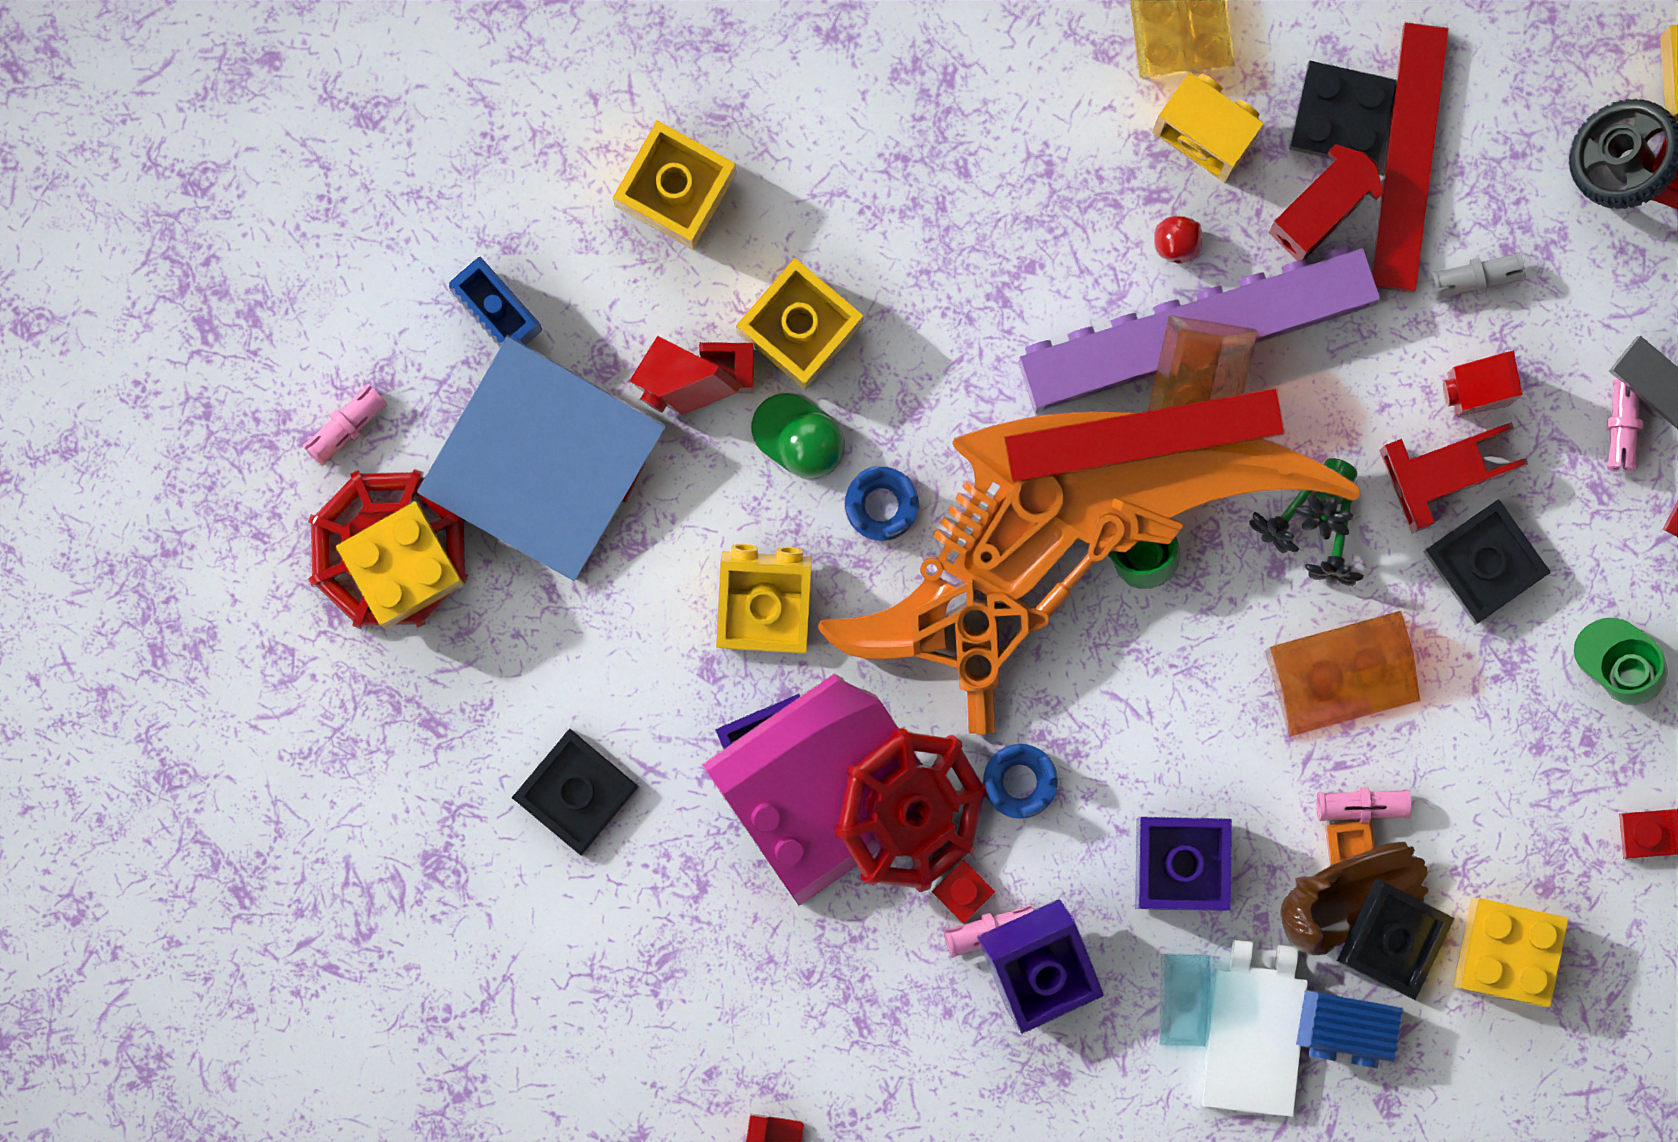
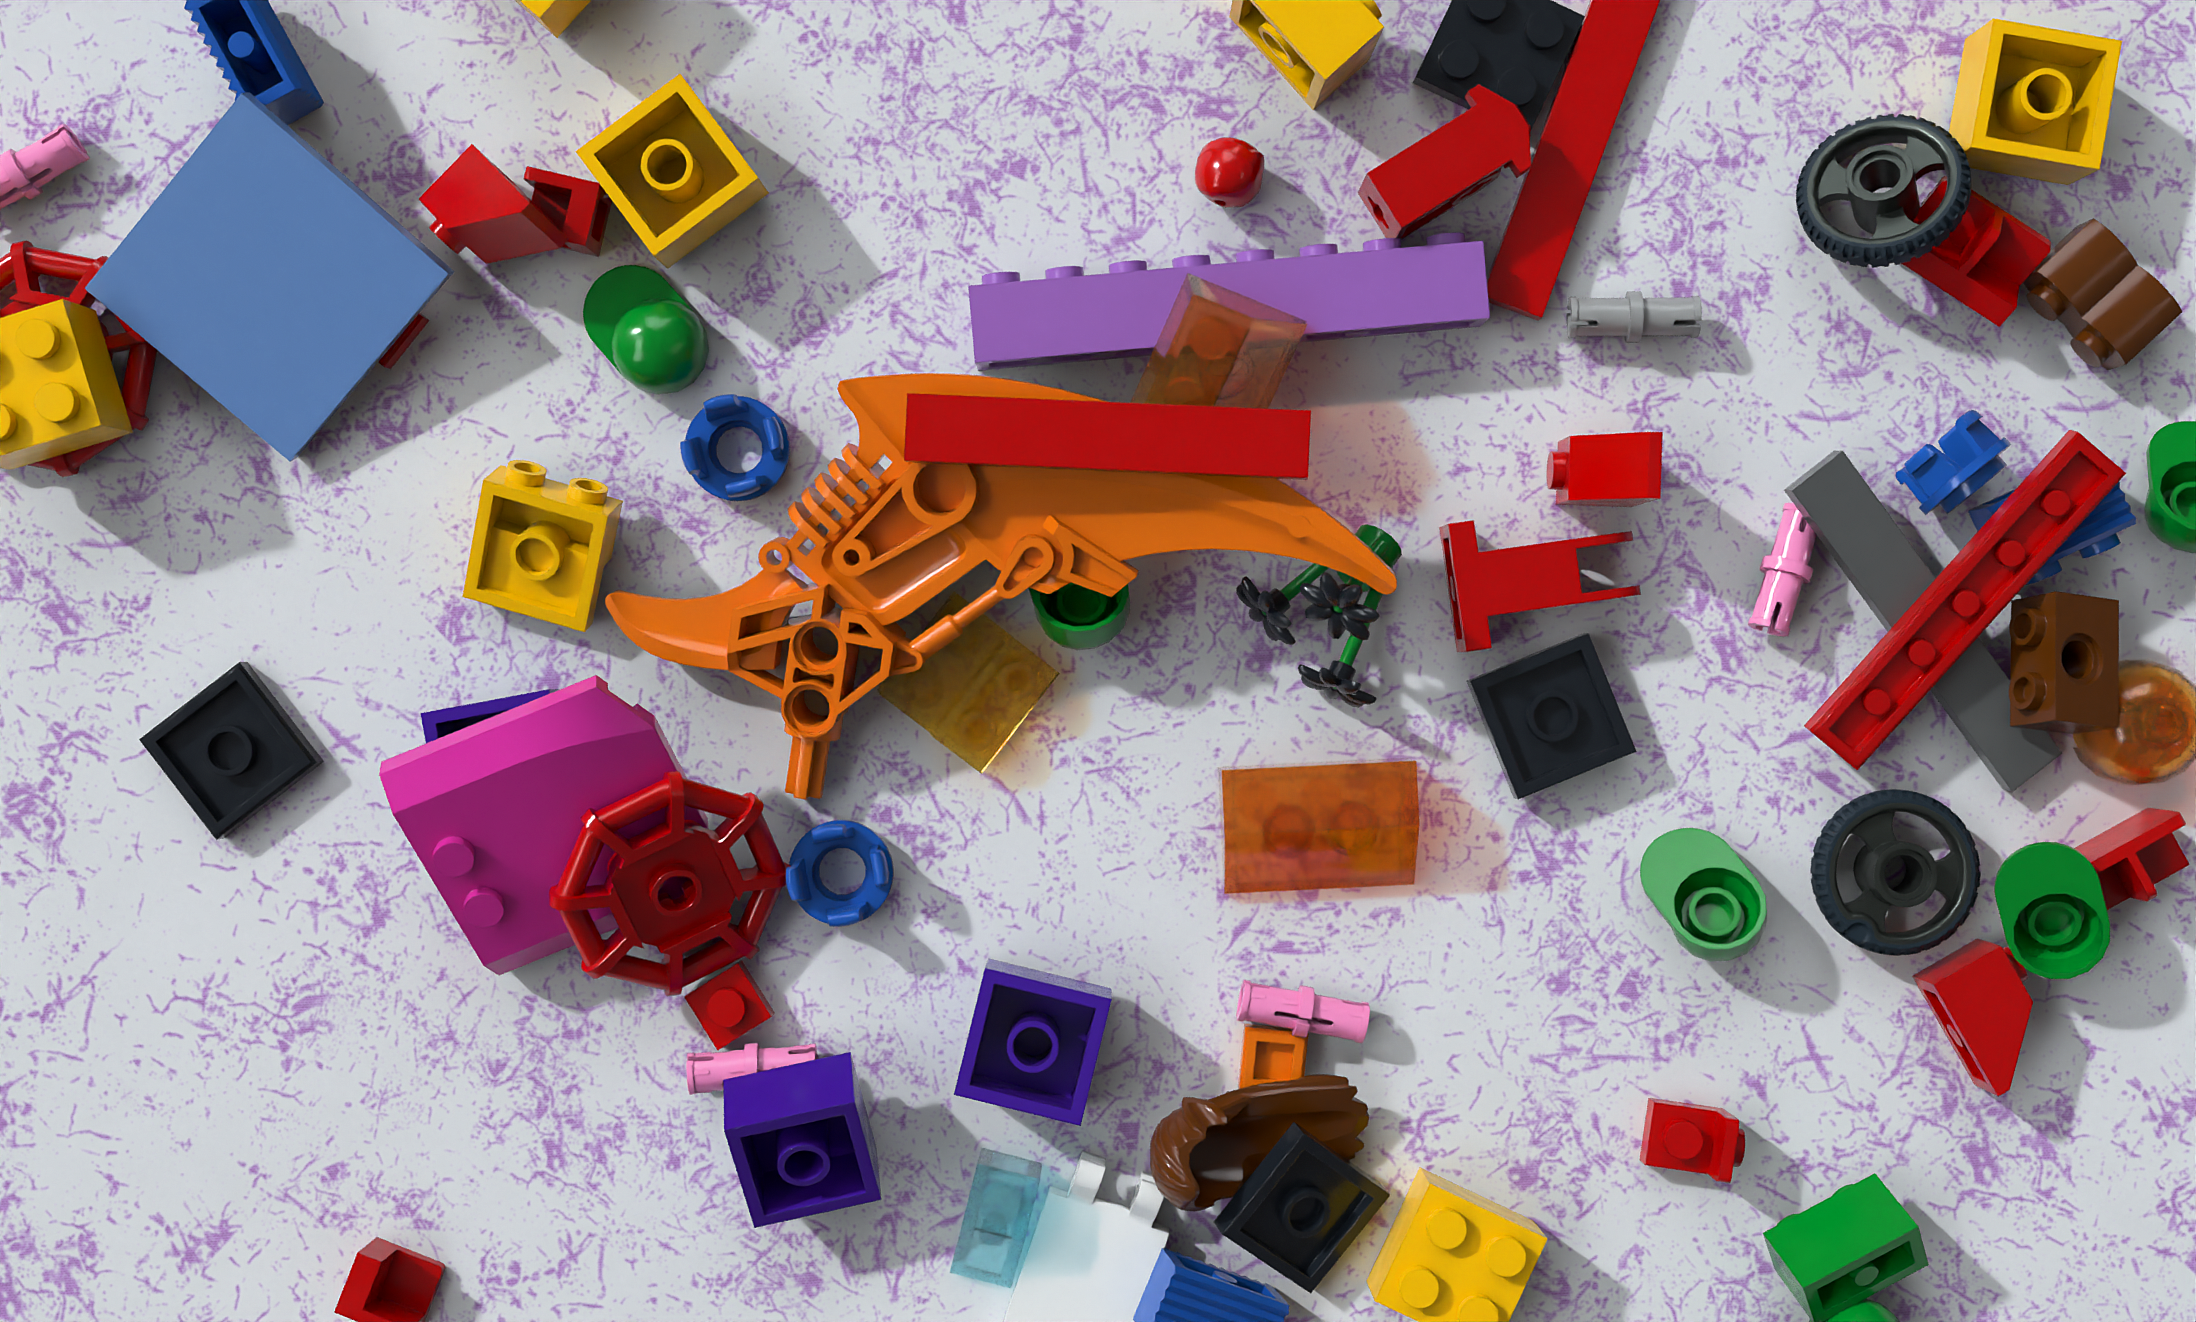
camera: 15 degrees right, 5 degrees up
(1082, 633) = (972, 688): none -> clear yellow slope

